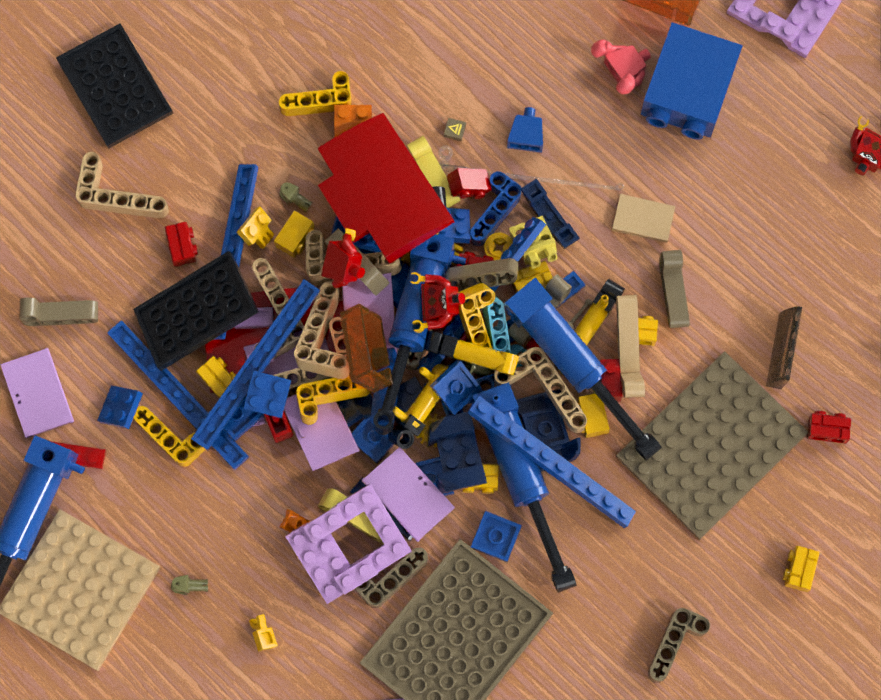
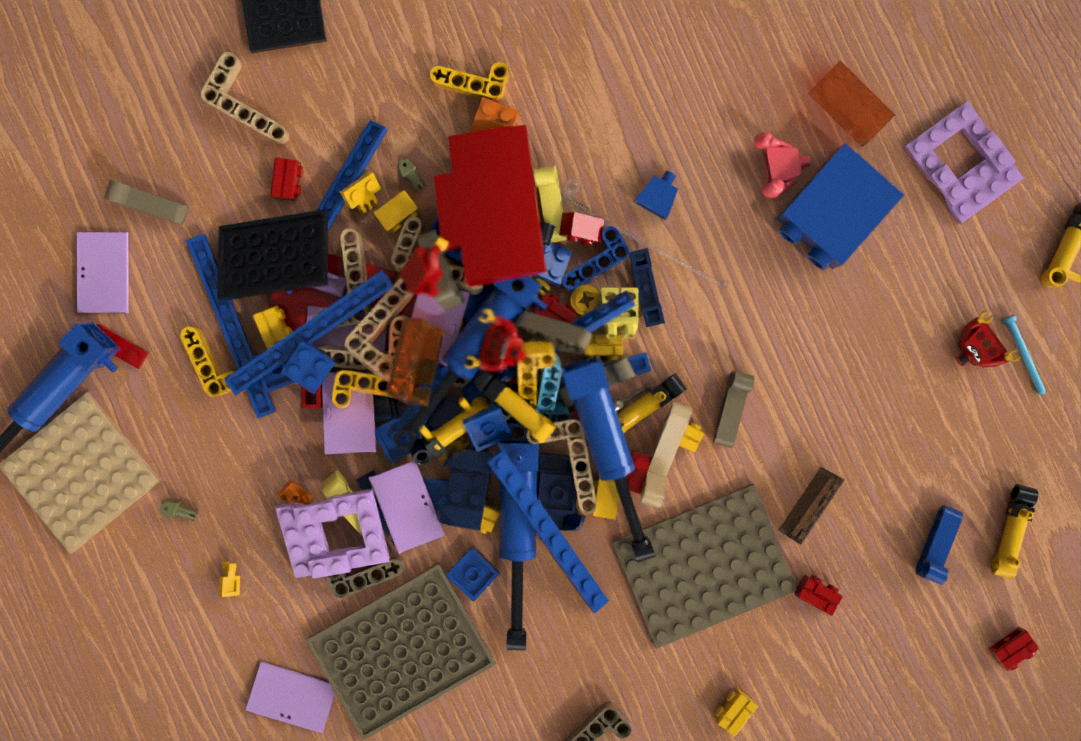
camera: 20 degrees right, 15 degrees up
(120, 407) = (172, 318): blue plate -> none
(454, 129) = (591, 164): dark tan tile -> none
(643, 218) = (734, 325): tan tile -> none

